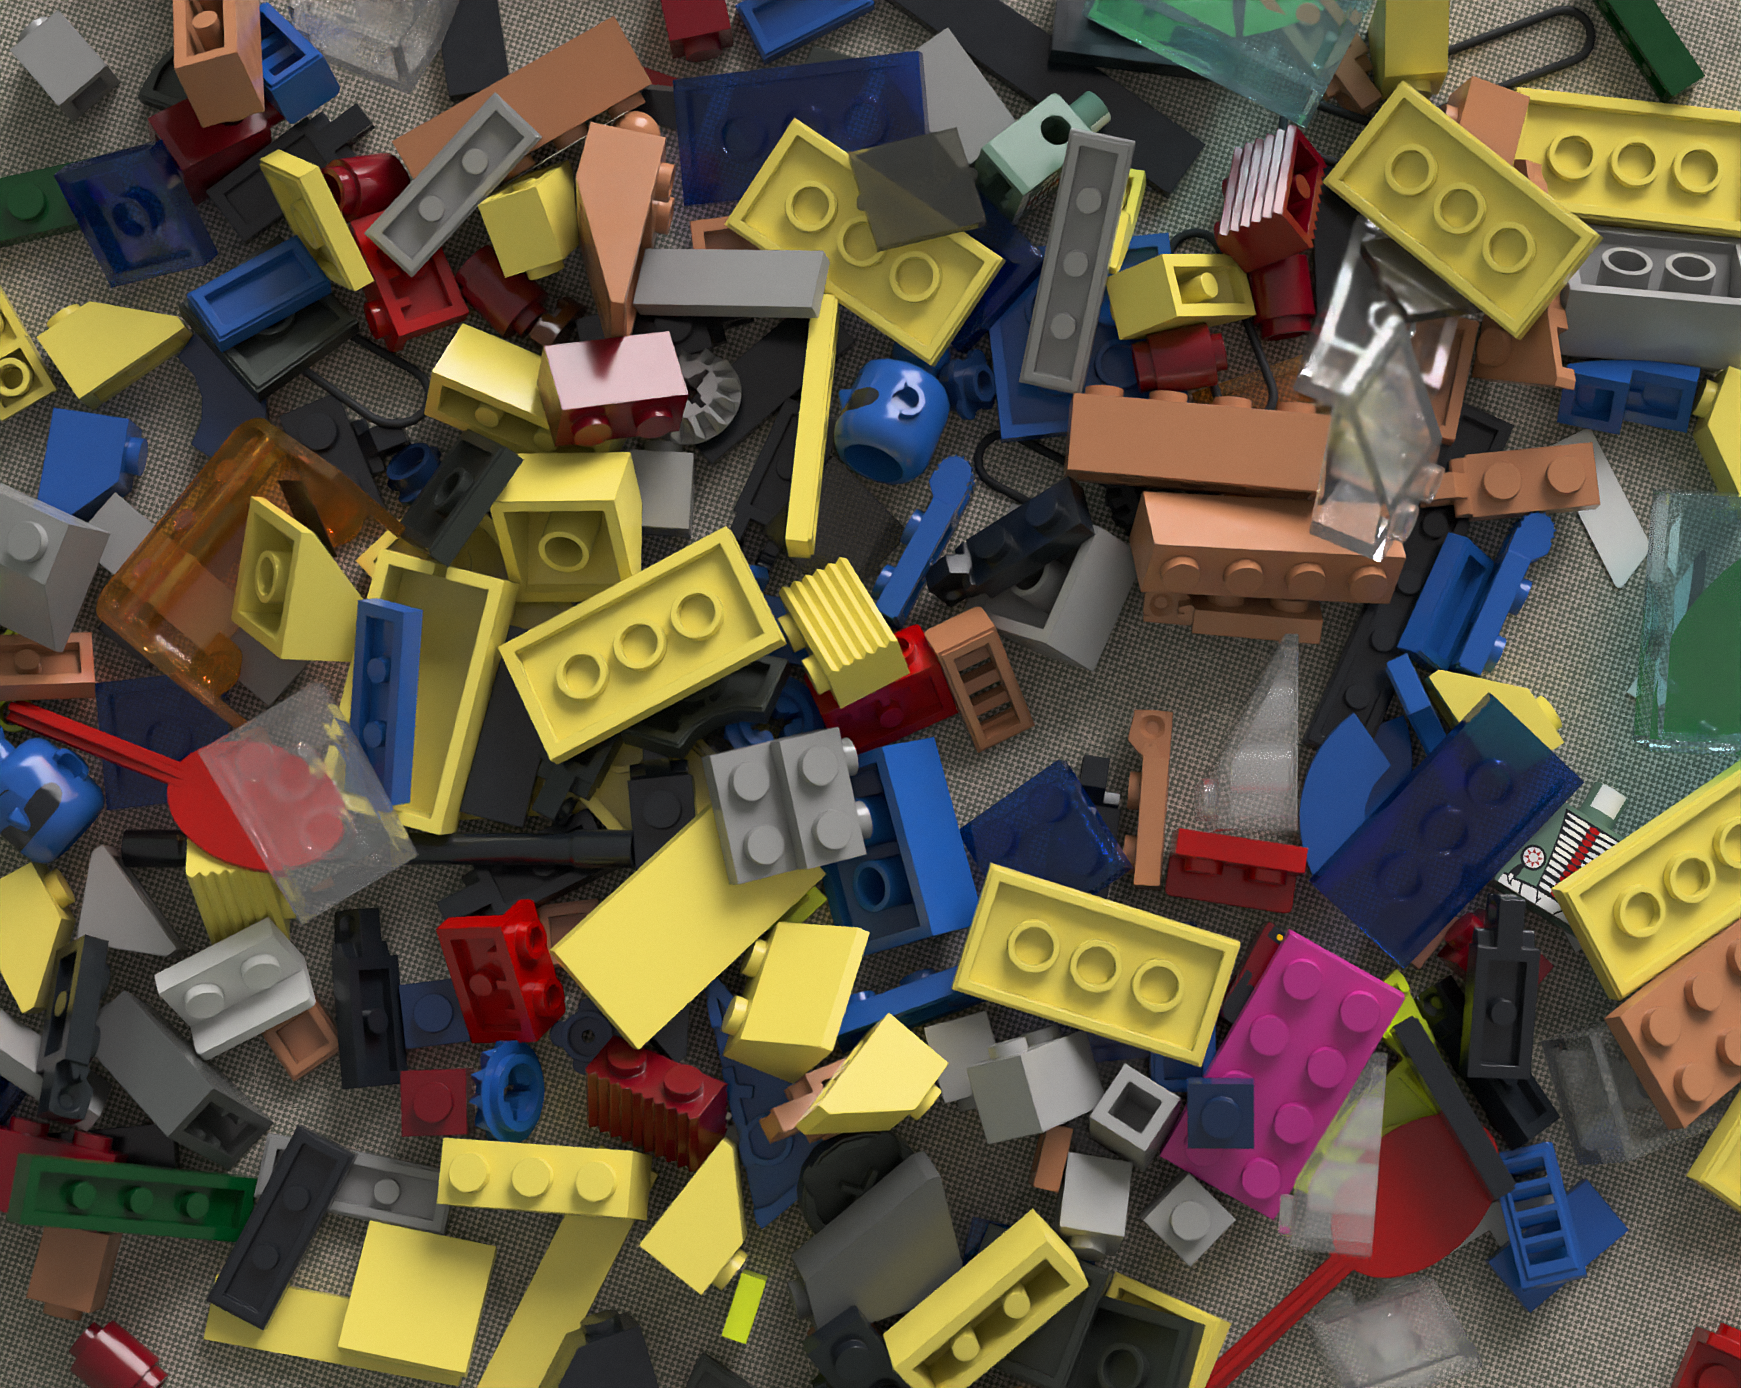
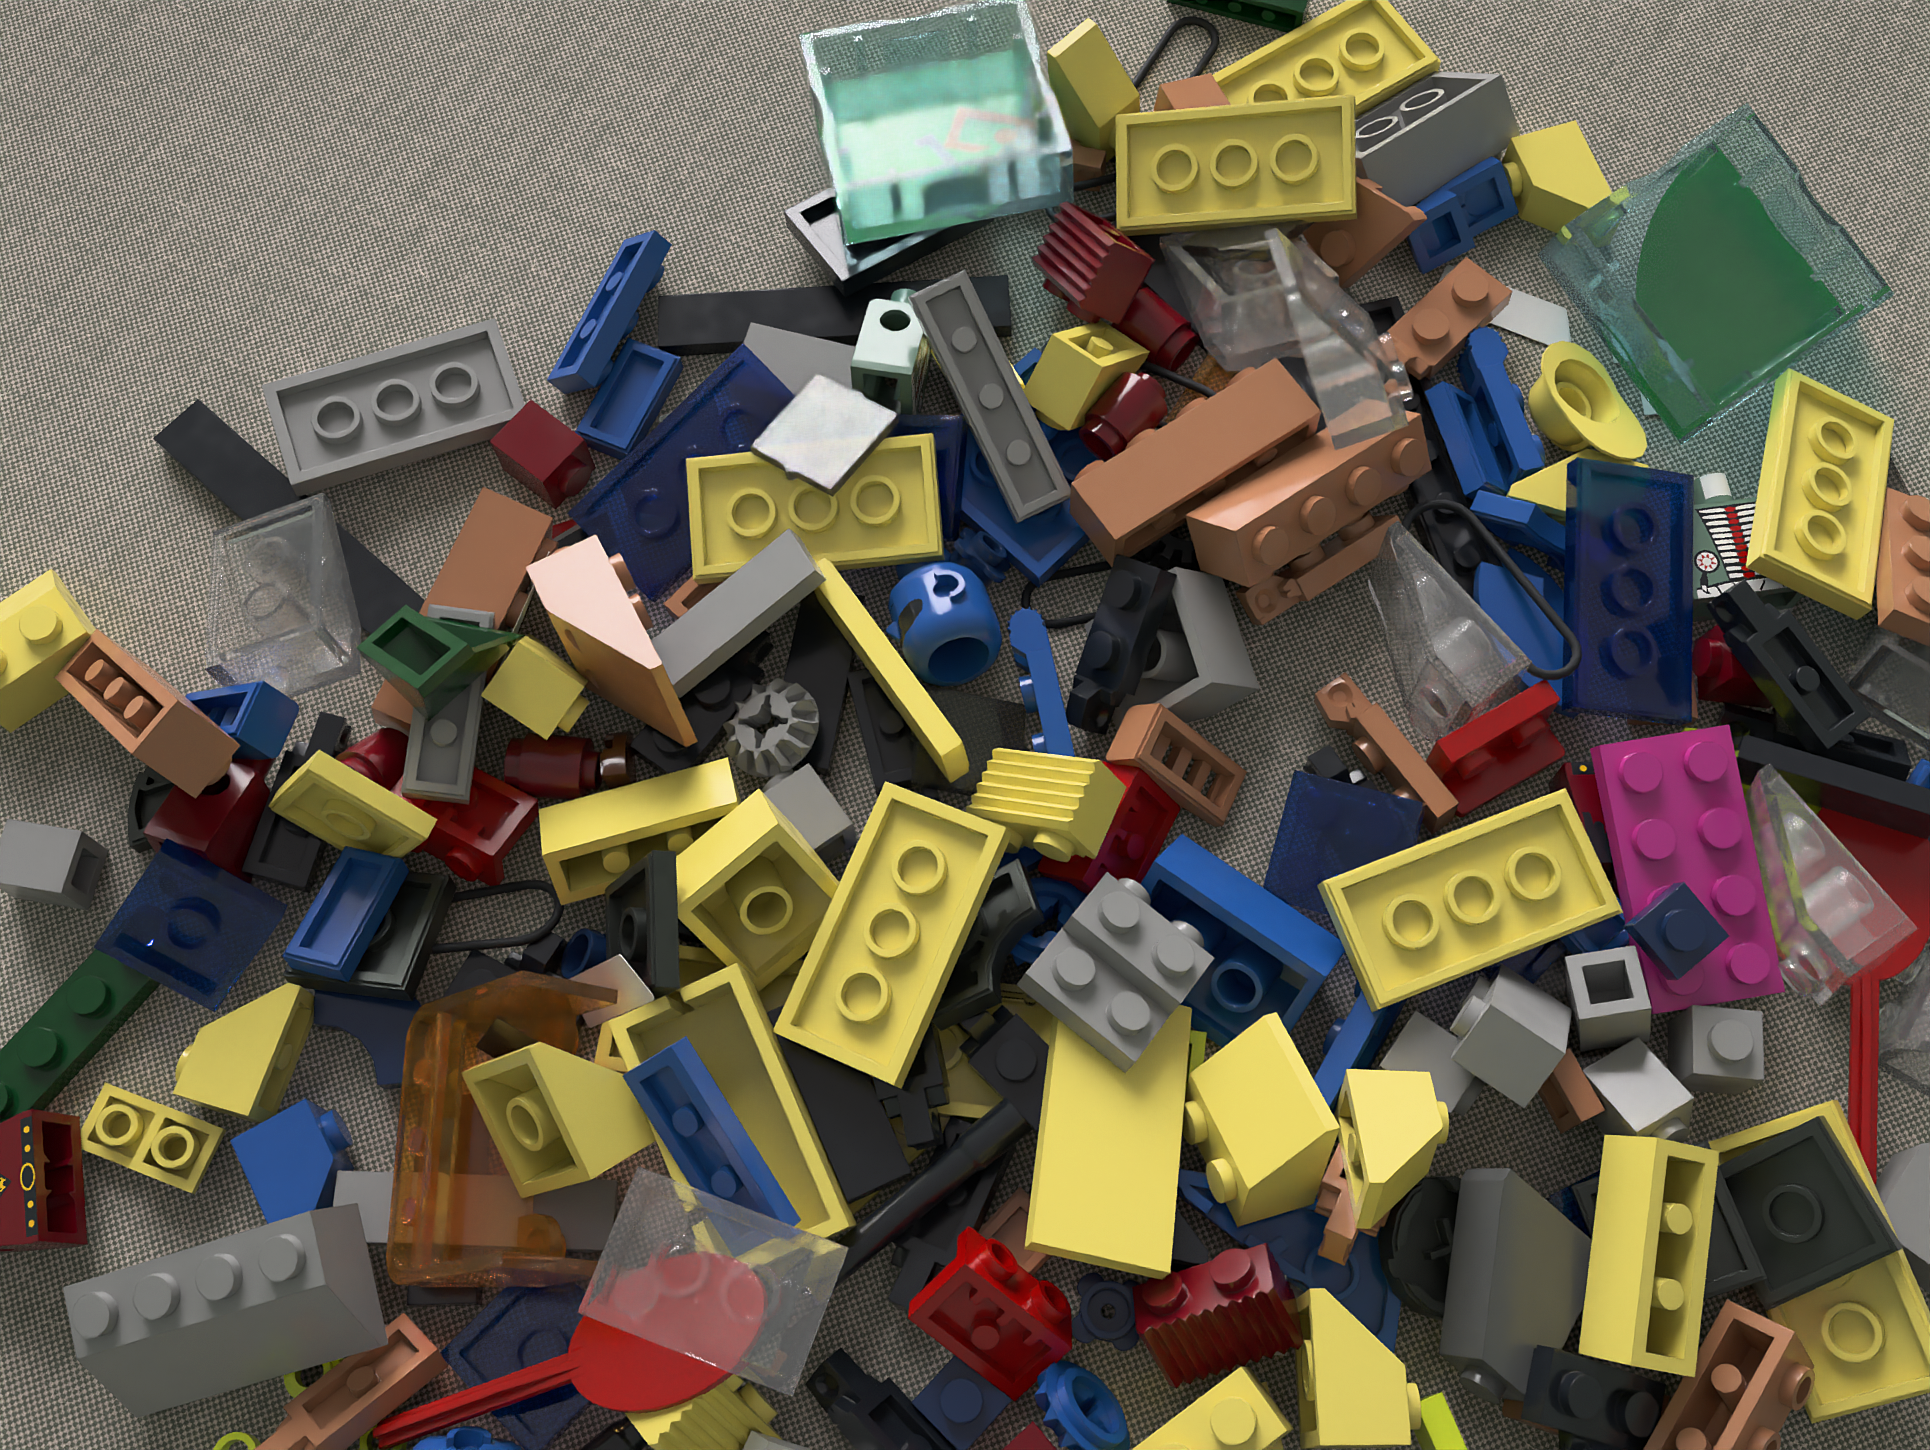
camera: 35 degrees left, 15 degrees down
(408, 513) = (616, 975): none -> white sticker
(466, 141) = (433, 657): none -> dark green slope
(612, 389) = (703, 754): brick -> none
(1369, 746) = (1518, 575): none -> black piece
(1569, 651) = (1581, 407): none -> light yellow piece

